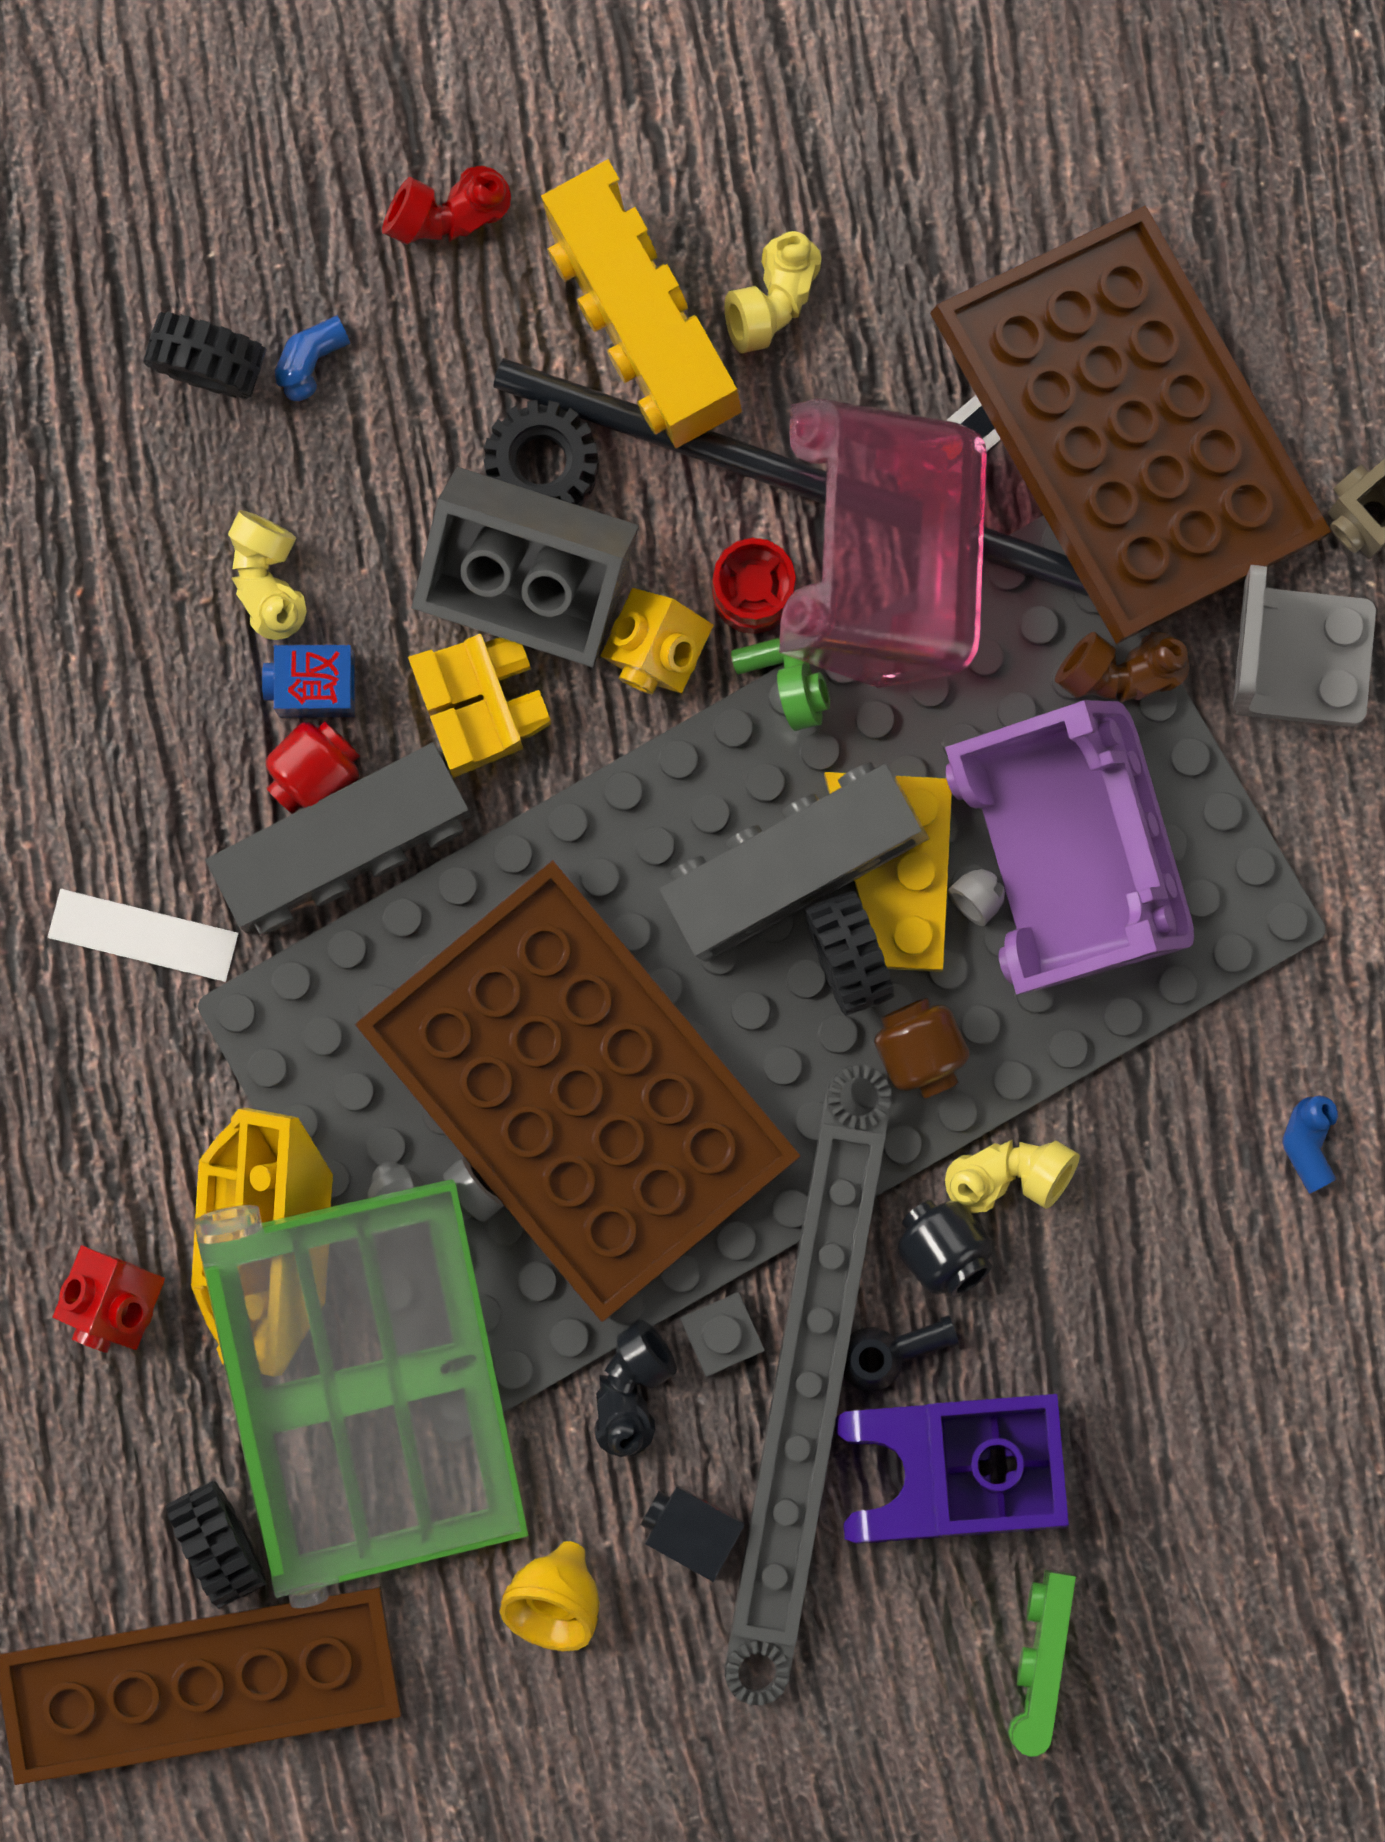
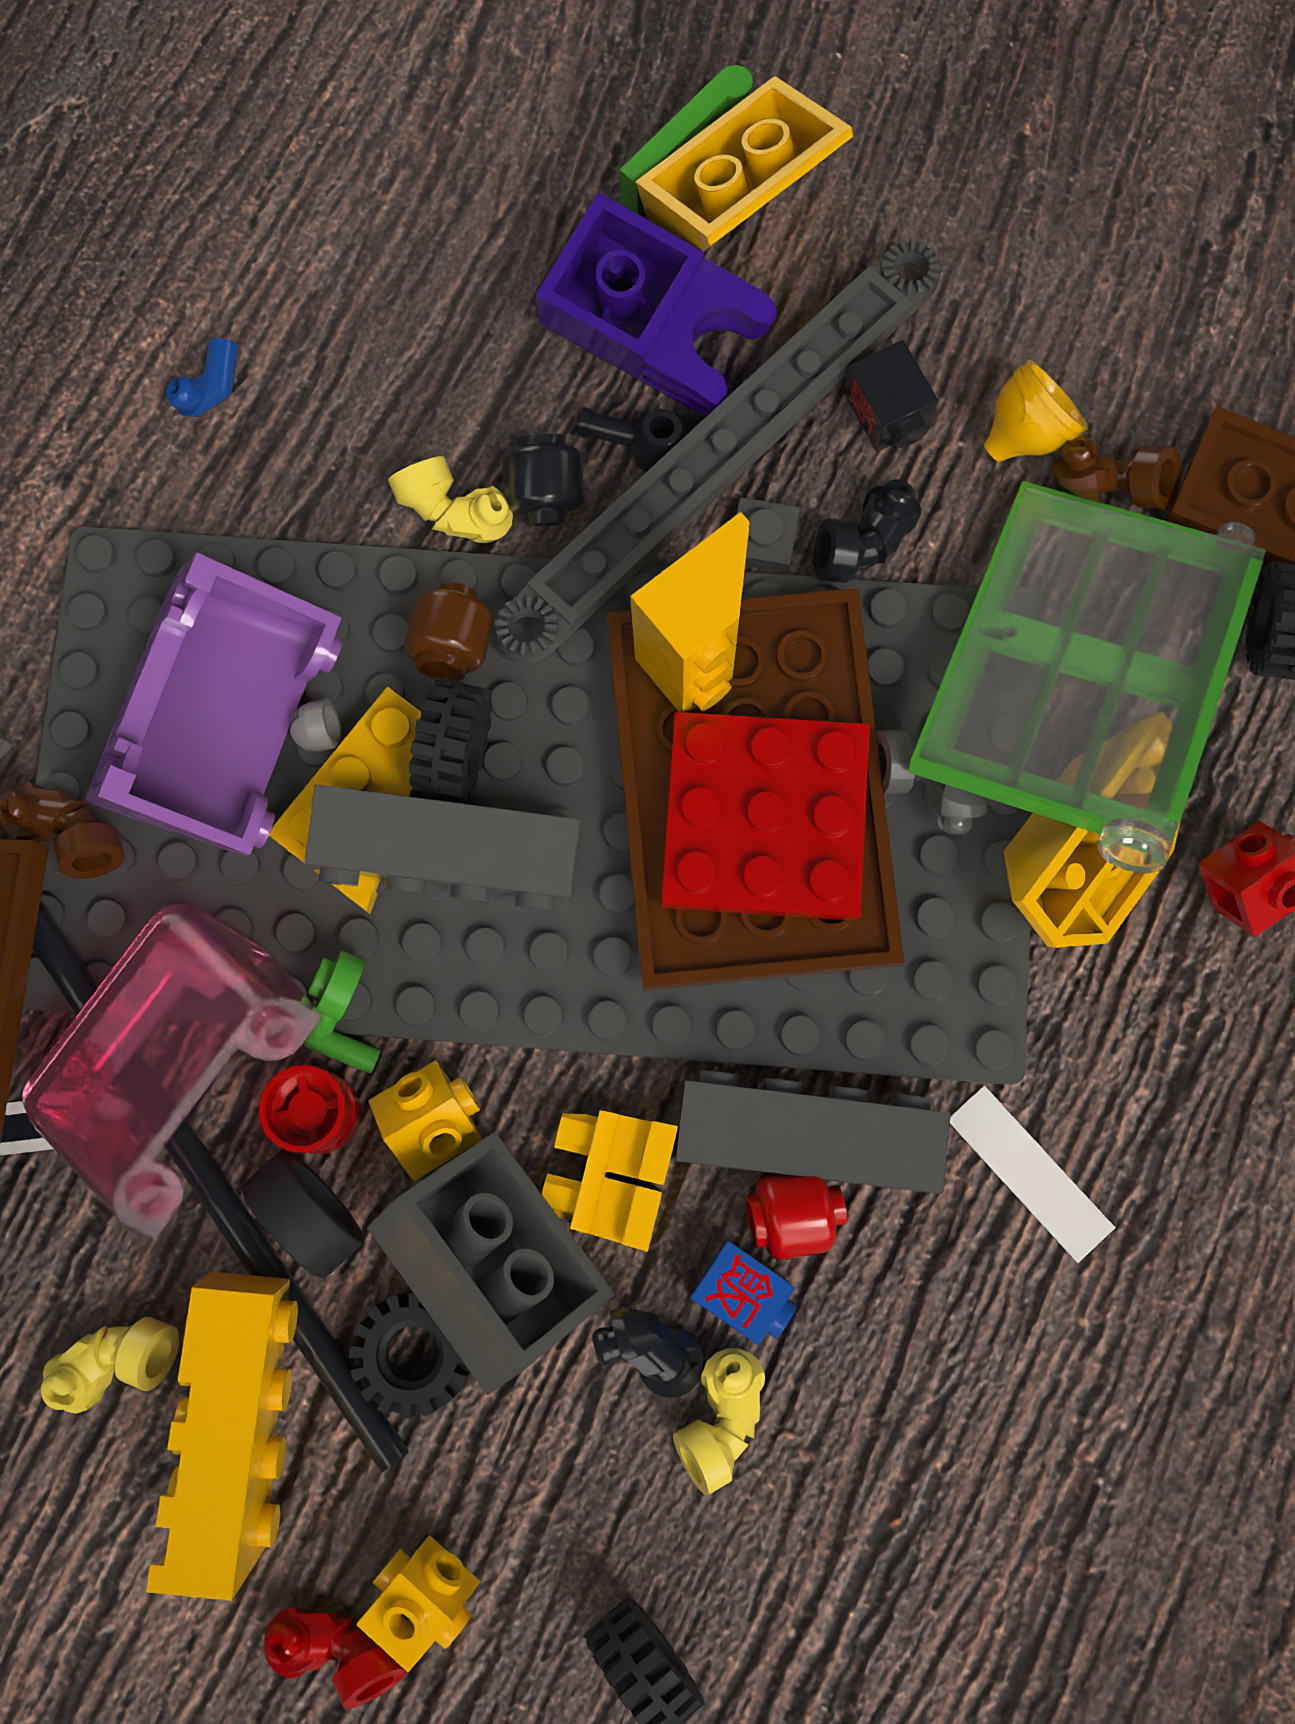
camera: 140 degrees left, 5 degrees down
(301, 355) = (555, 1605): blue arm -> none
(343, 590) = (666, 1357): none -> black arm
(406, 286) = (429, 1592): none -> yellow brick
(418, 1609) = (1149, 477): none -> reddish brown arm
(546, 1066) = (766, 816): none -> red plate
(697, 1163) = (690, 619): none -> yellow slope
(699, 502) = (302, 1214): none -> black tyre
(963, 1646) = (739, 163): none -> yellow slope

